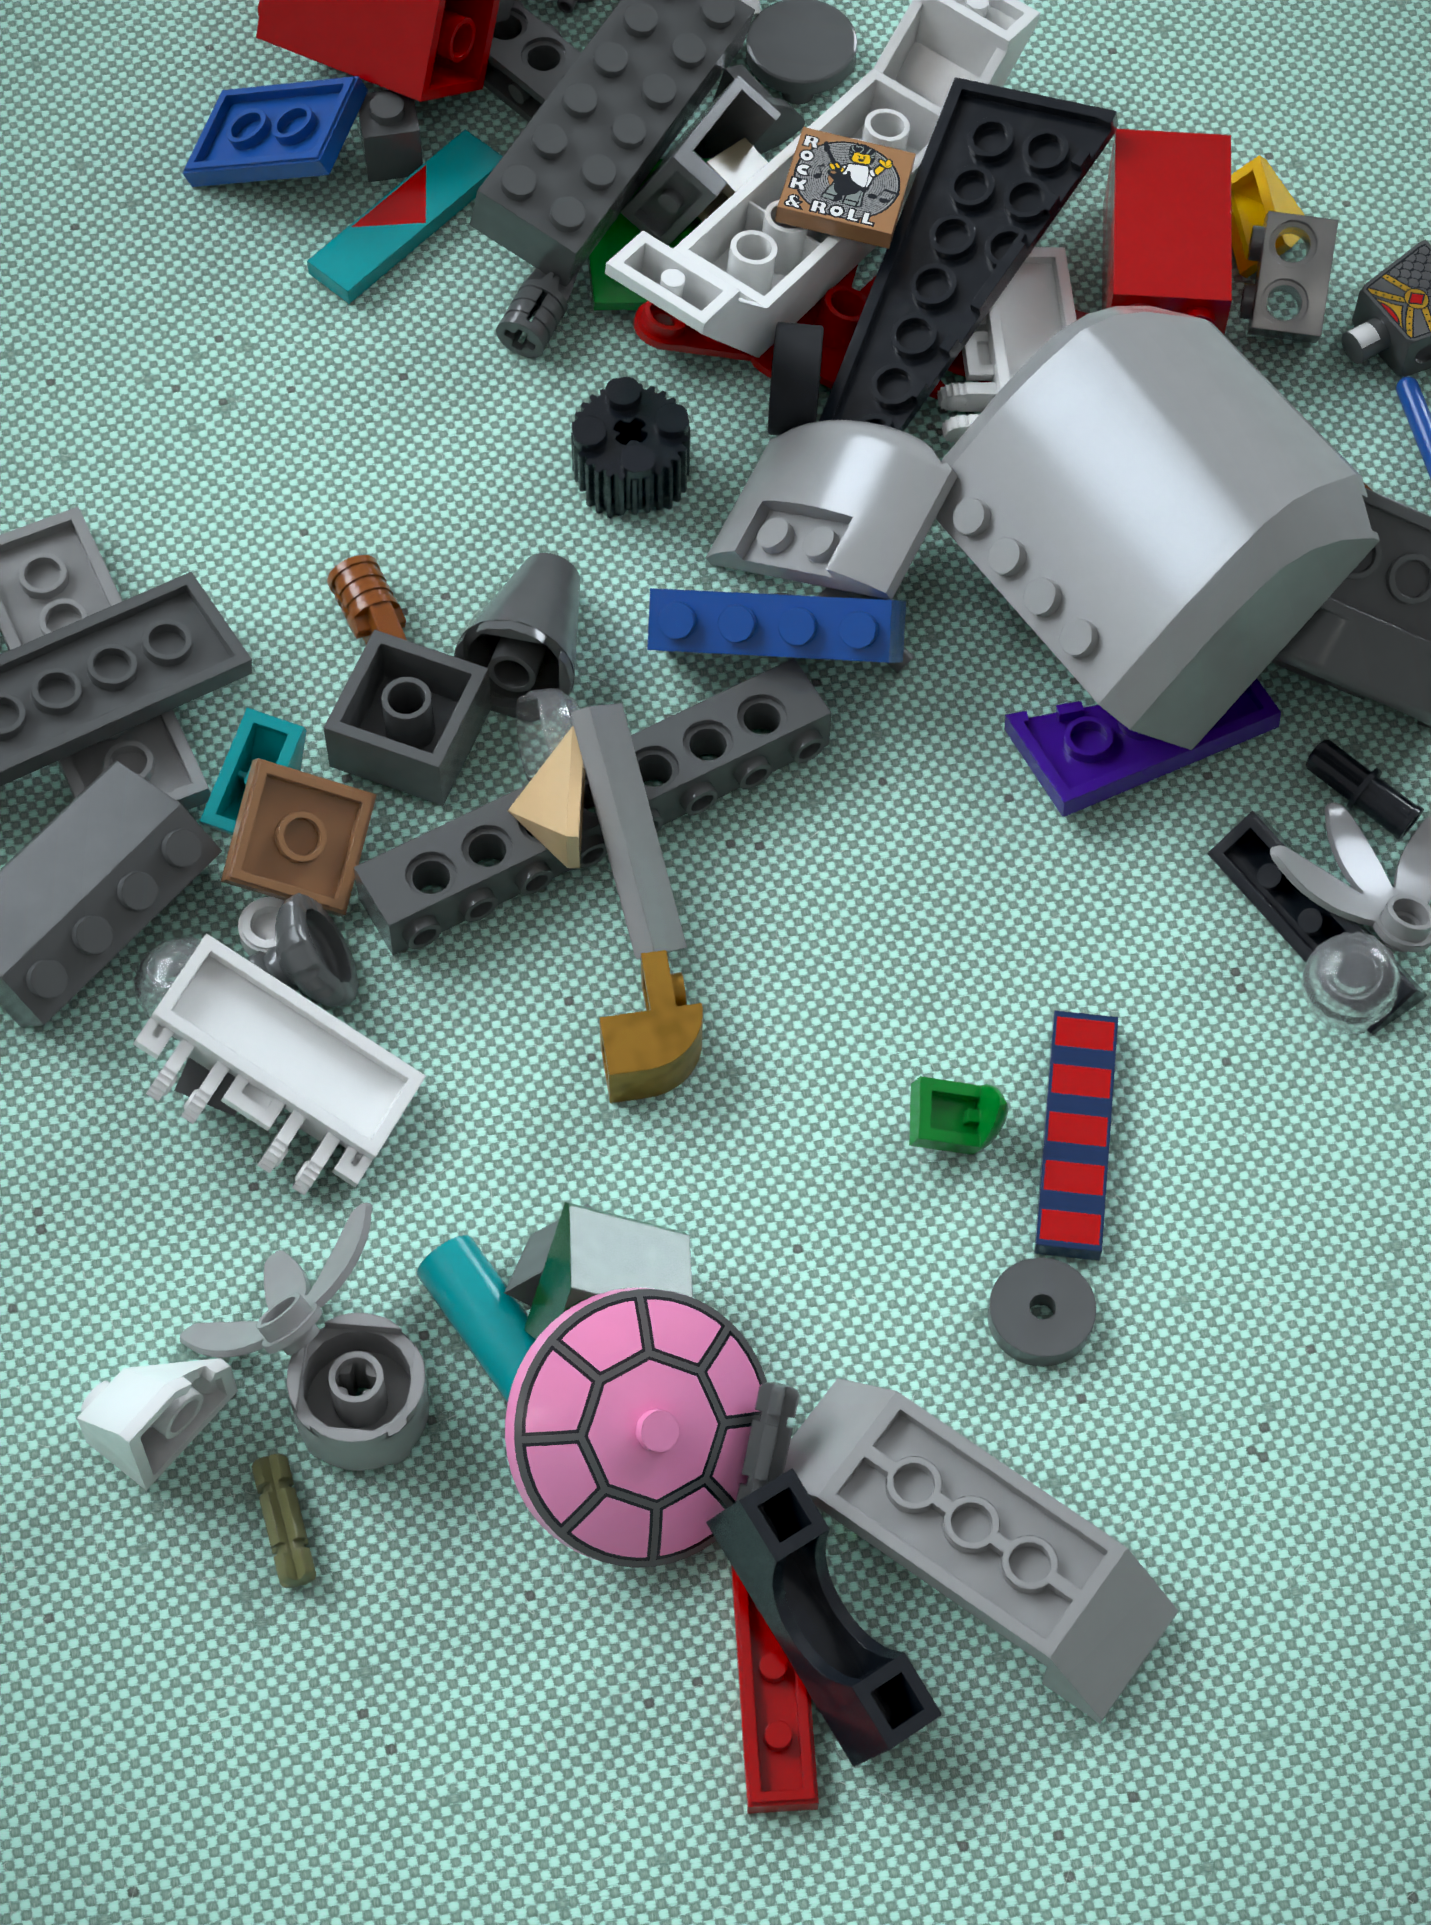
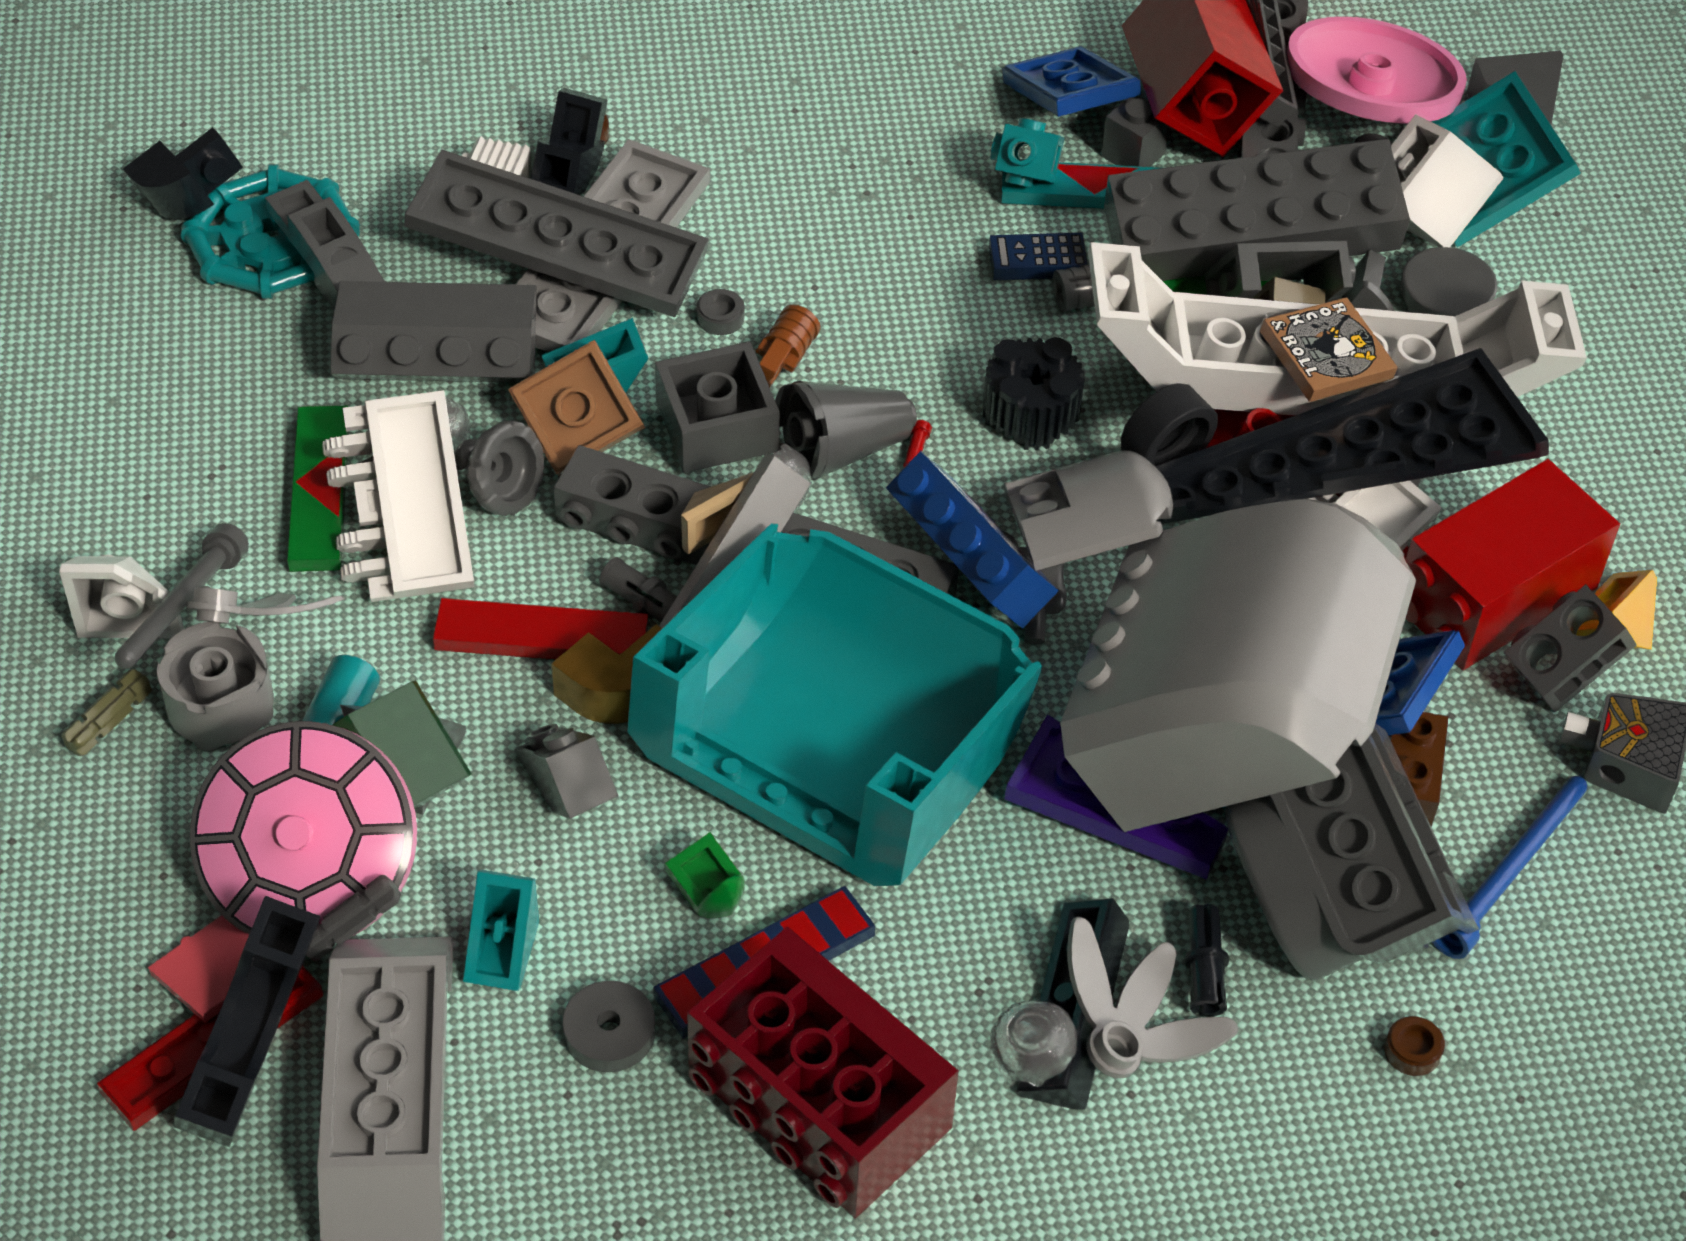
camera: 50 degrees right, 10 degrees down
(159, 1139) = (315, 505): none -> green tile
(173, 1280) = (220, 550): none -> dark grey piece
(265, 631) = (720, 312): none -> dark grey tile
(345, 233) = (1044, 154): none -> teal brick
(451, 324) = (1035, 254): none -> dark blue tile
(527, 1063) = (530, 629): none -> red tile
(531, 949) = (625, 580): none -> dark grey pin
(594, 595) = (919, 433): none -> red piece
(694, 1618) = (202, 967): none -> coral piece
(730, 1149) = (567, 769): none -> dark grey slope
(873, 1329) = (501, 930): none -> teal slope
(875, 865) = (832, 700): none -> teal slope
(1262, 1168) = (820, 1072): none -> dark red brick

